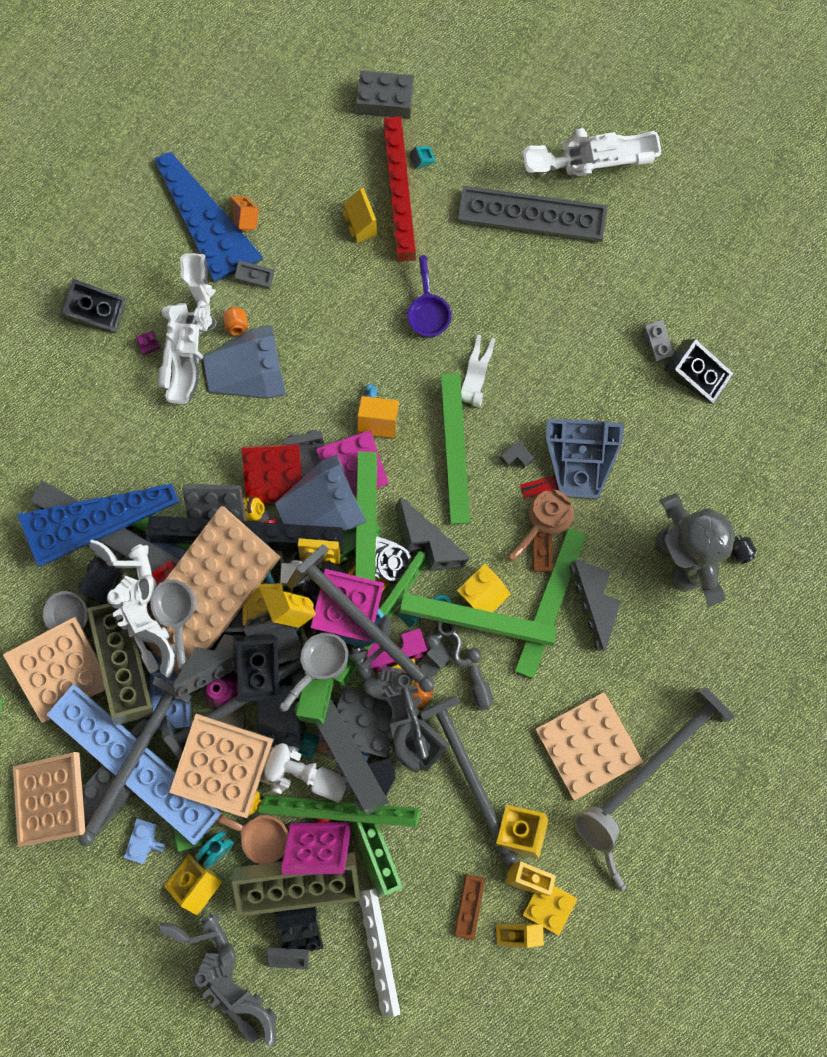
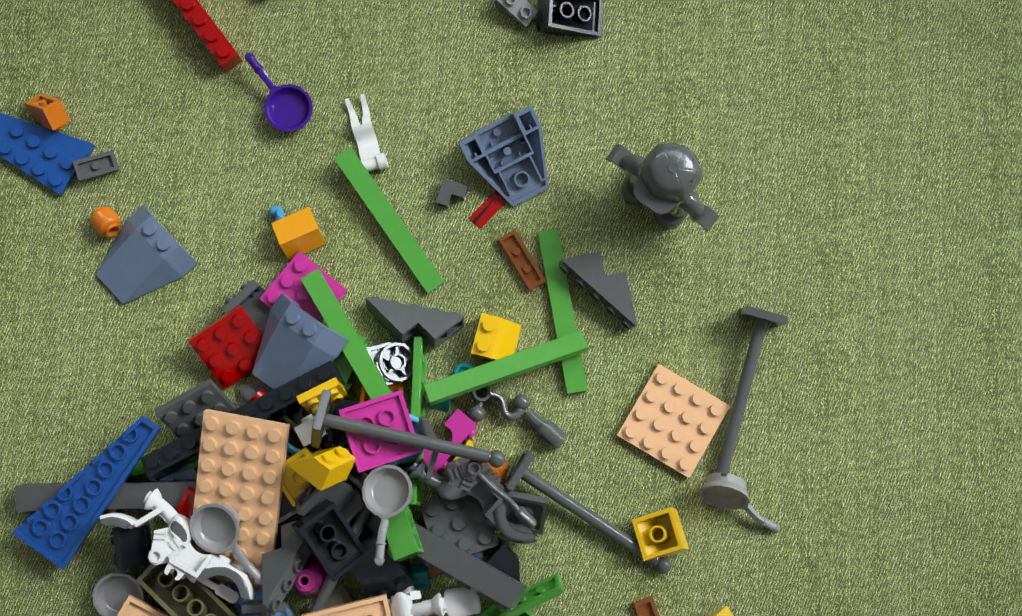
camera: 35 degrees left, 5 degrees up
(148, 342) = (34, 292): magenta tile -> none
(184, 331) = (62, 261): white piece -> none
(253, 508) = (234, 390): yellow head -> none
(360, 216) = (164, 50): yellow slope -> none
(434, 660) = (488, 430): dark grey slope -> none
(530, 879) = (692, 572): yellow slope -> none
(549, 513) = (512, 229): nougat piece -> none
(550, 910) = (723, 585): yellow plate -> none
(743, 549) = (708, 157): black head -> none

